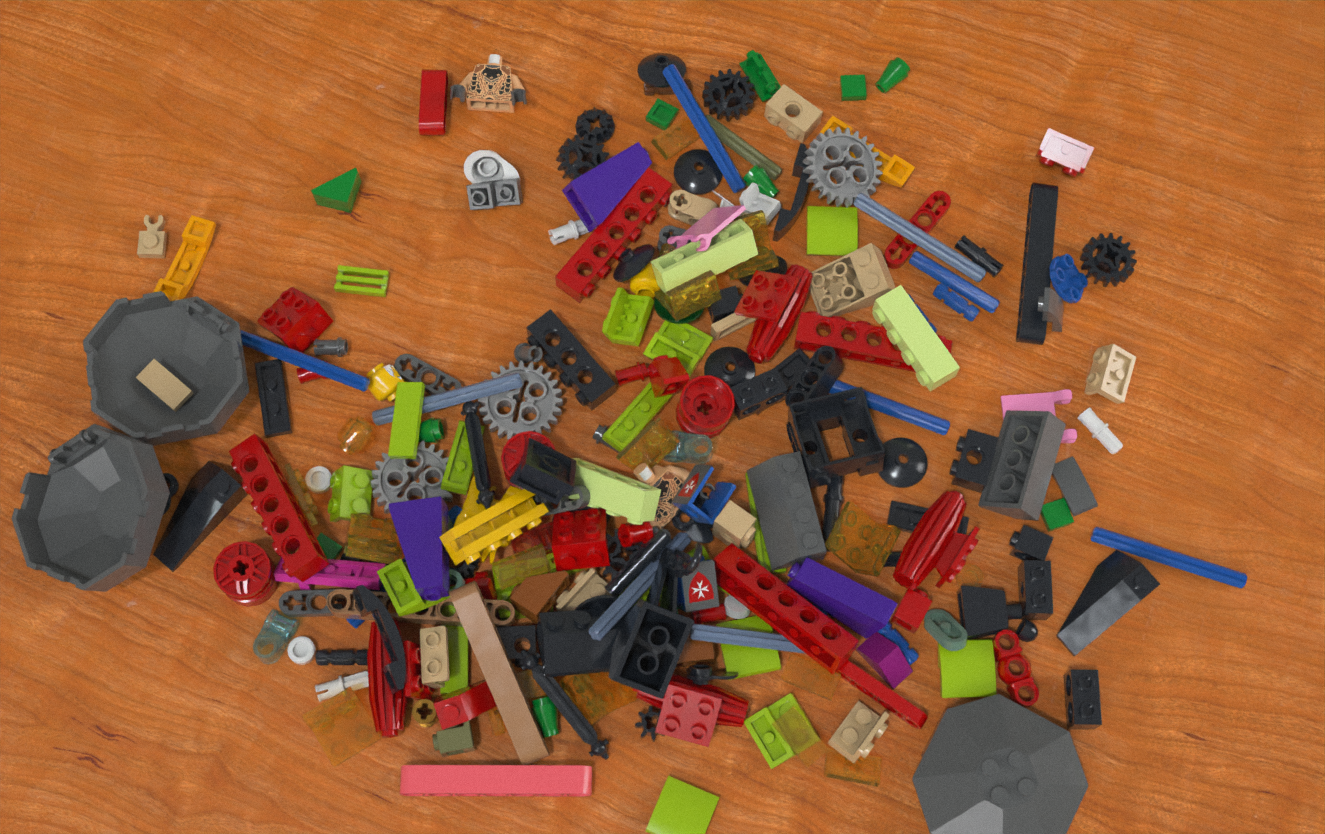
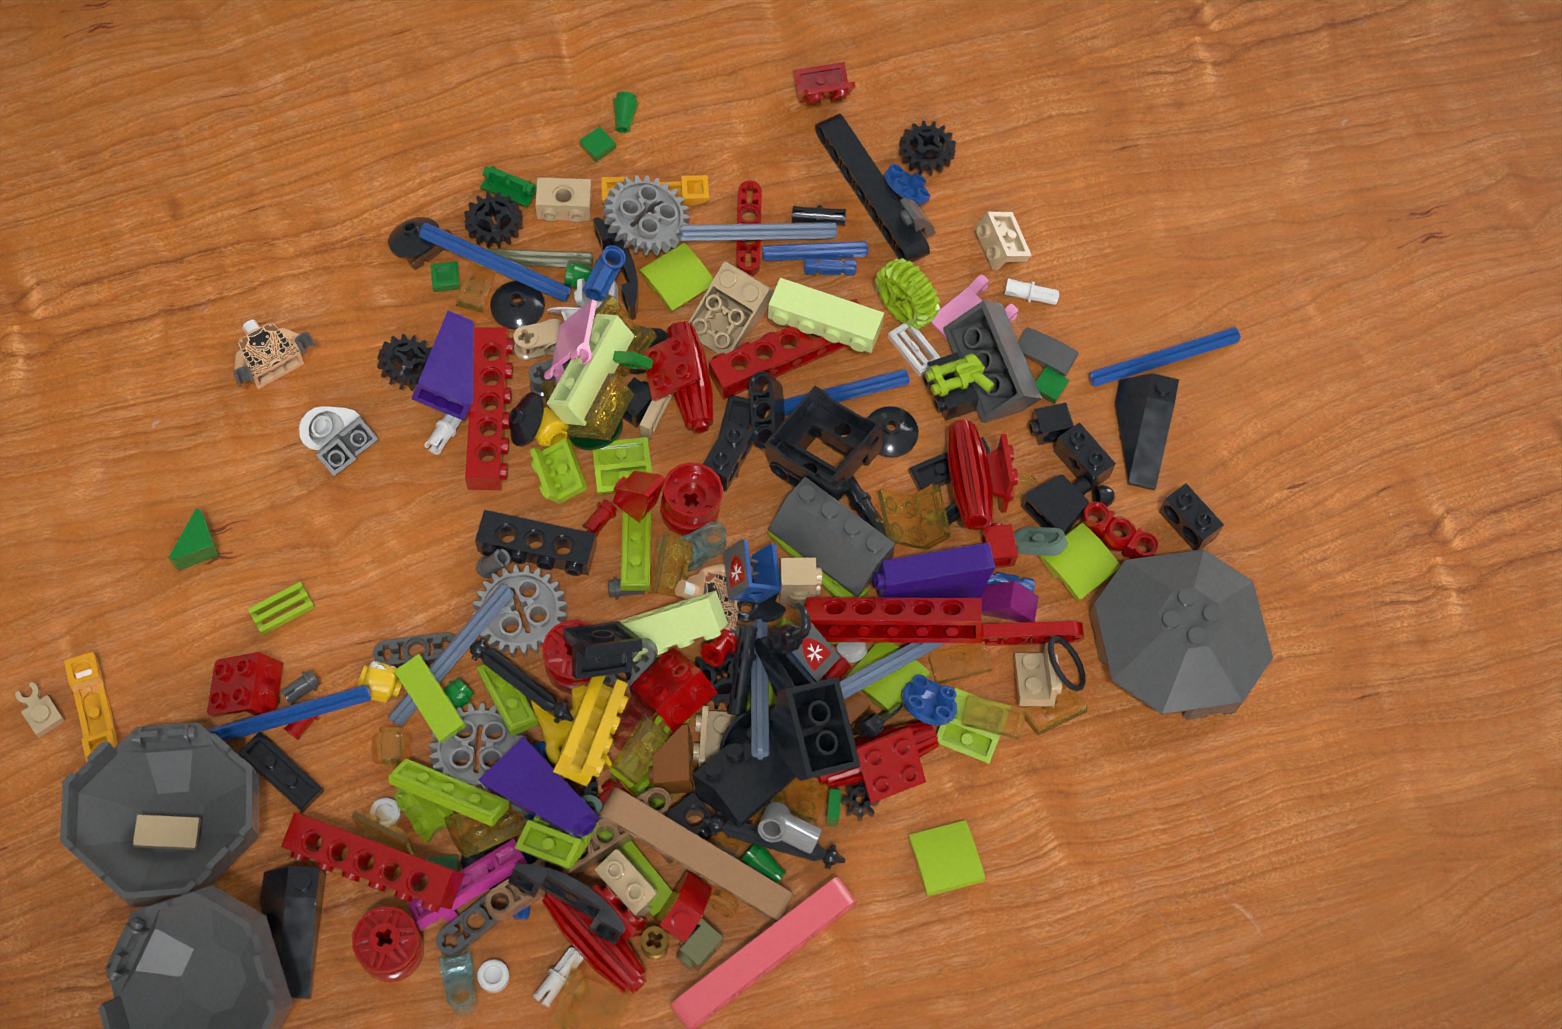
camera: 40 degrees left, 5 degrees down
(341, 657) = (537, 953): black axle -> none
(365, 497) = (449, 792): none -> lime tile
(433, 102) = (221, 403): red beam -> none
(575, 697) = (780, 825): none -> light grey piece
(605, 122) = (402, 320): black gear -> none
(628, 713) = (833, 807): none -> green tile
(724, 356) = (667, 450): black dish -> none
(740, 272) = (632, 360): none -> green tile
(761, 689) = (930, 701): none -> blue dish
(773, 191) = (604, 273): none -> blue piece
(894, 760) = (1060, 674): none -> black piece
(961, 409) = (905, 352): none -> white tile
(992, 456) = (966, 370): none -> lime piece
(995, 364) = (907, 293): none -> lime gear

